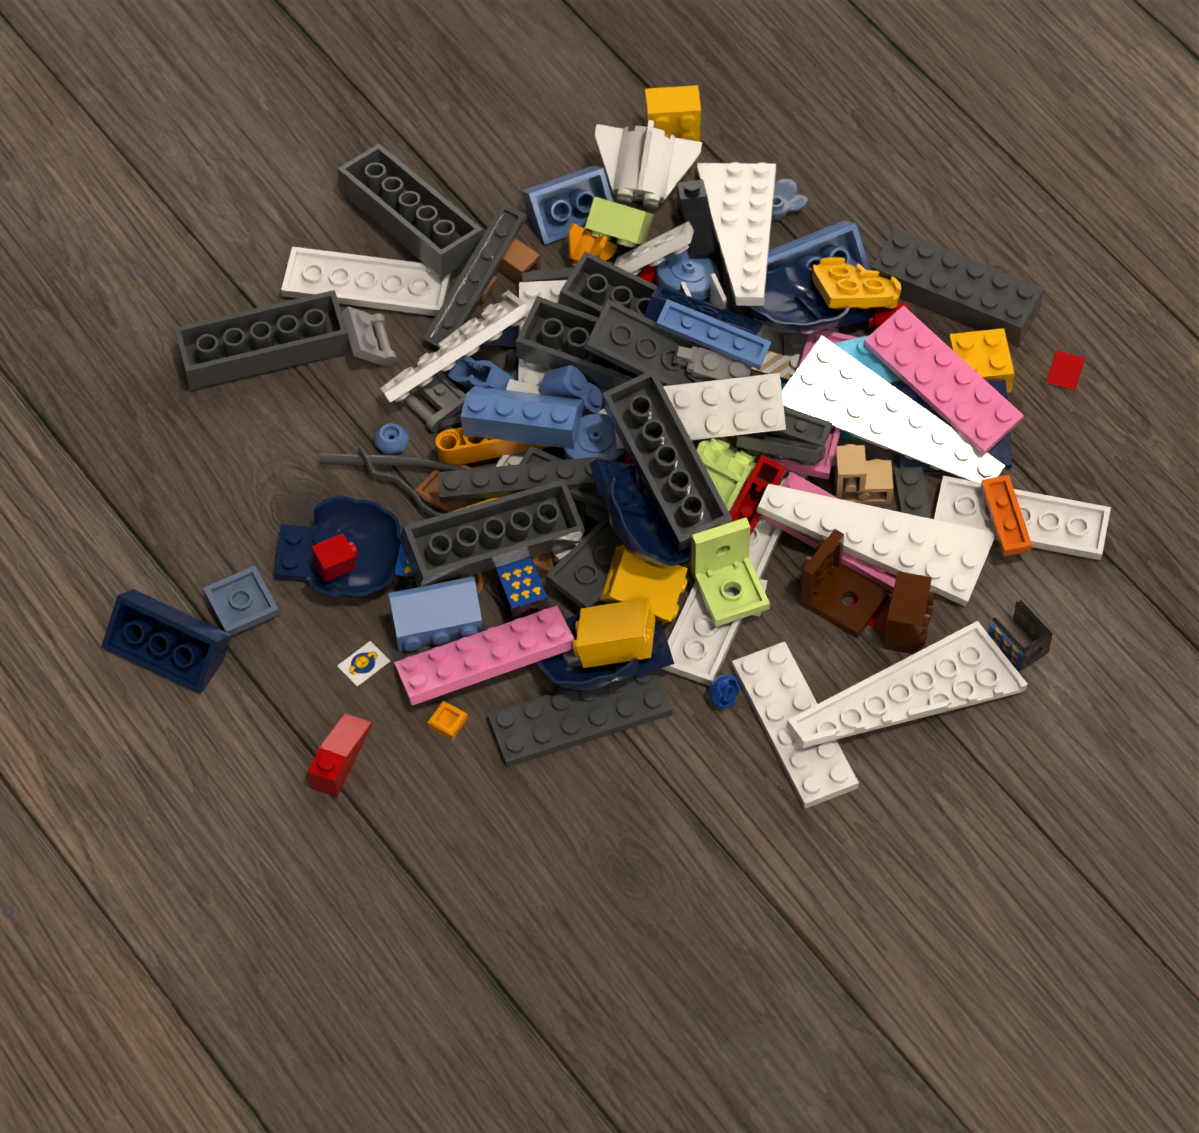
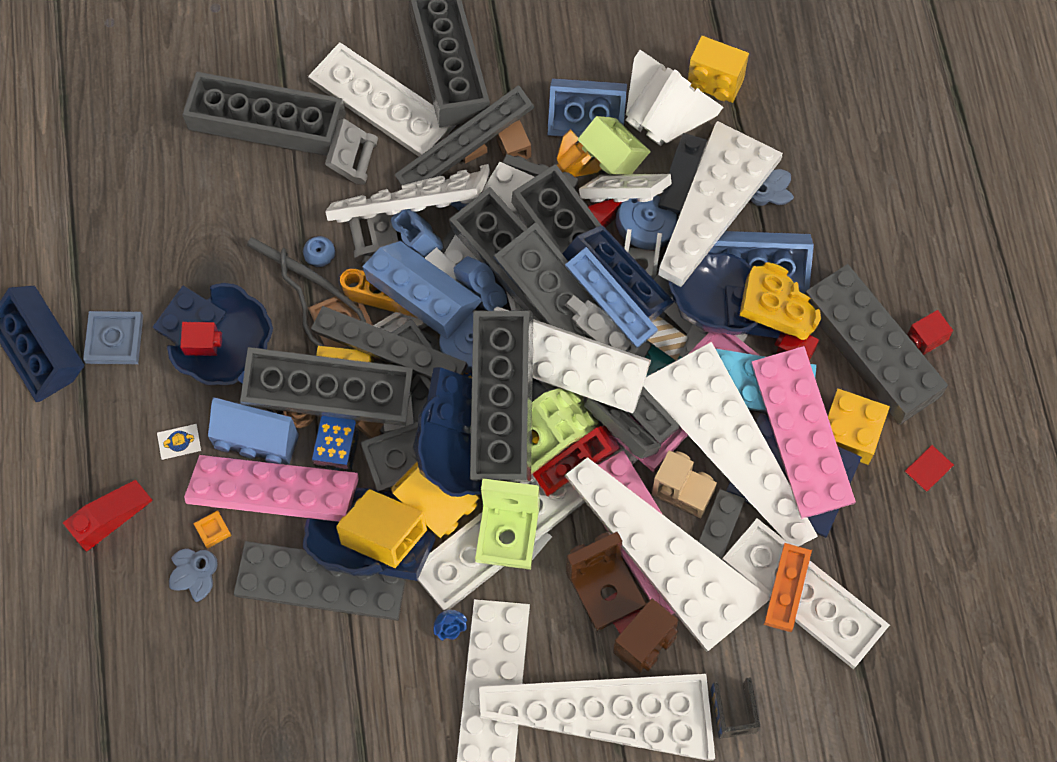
camera: 30 degrees right, 10 degrees up
(453, 766) = (190, 575): none -> sand blue plate
(1001, 253) = (930, 332): none -> red brick

